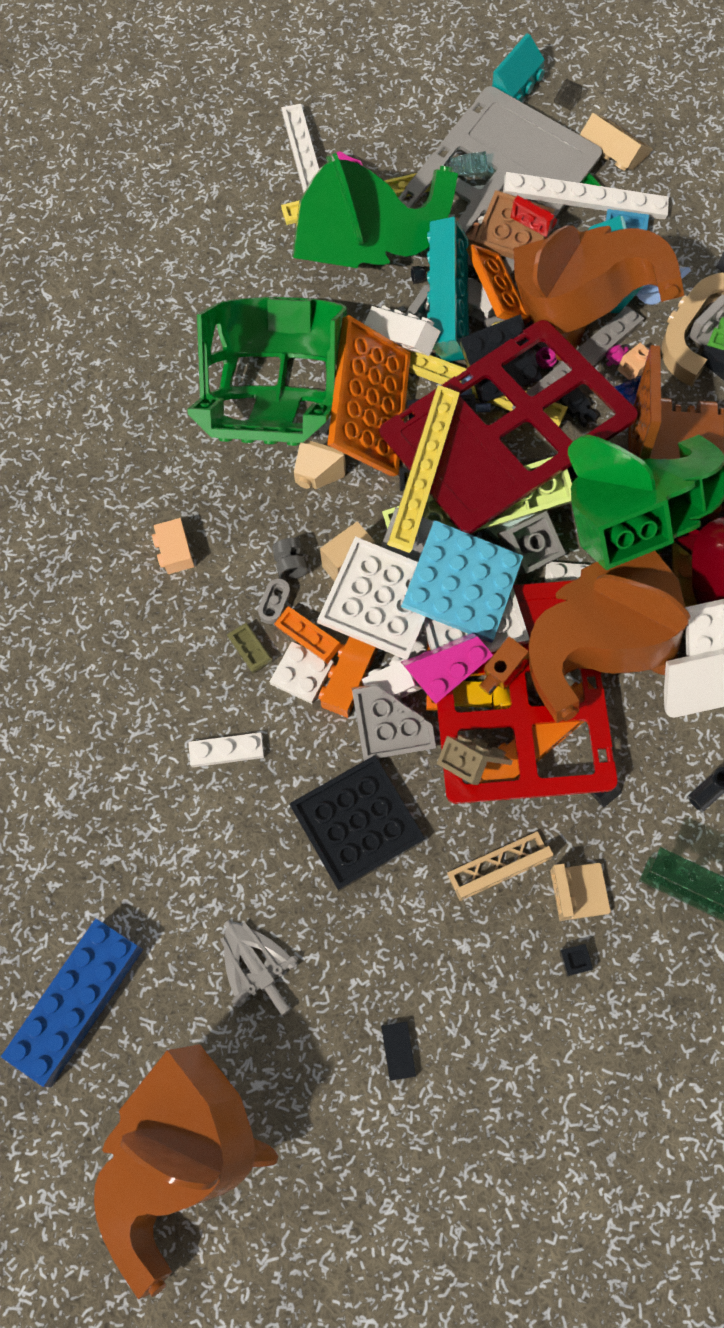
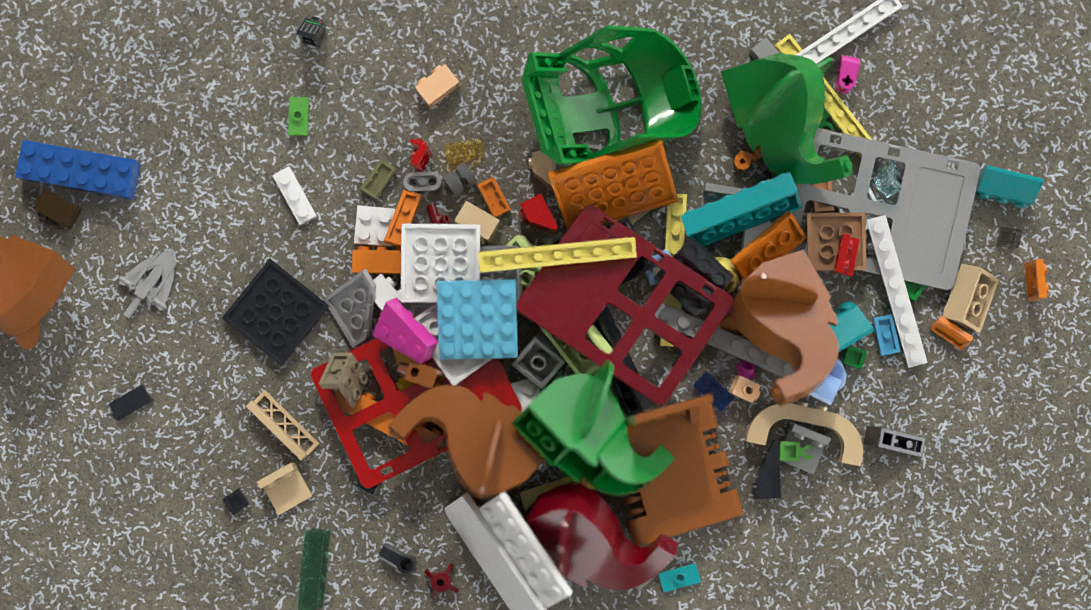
camera: 65 degrees right, 15 degrees up
(46, 655) = (312, 31): none -> black slope
(110, 1050) = (57, 208): none -> dark brown brick
(135, 710) = (298, 116): none -> bright green plate
(238, 582) = (420, 157): none -> red bracket
(256, 562) = (466, 157): none -> clear yellow slope
(286, 229) = (763, 49): none -> light grey brick
(317, 604) = (435, 217): none -> dark red arm
(321, 533) = (494, 197): none -> orange plate
(368, 488) = (538, 215): none -> red slope
(391, 283) = (744, 159): none -> orange leg
(404, 329) = (688, 186): white brick -> none
(621, 80) = (1035, 280): none -> orange plate
(645, 167) = (951, 332): none -> orange plate

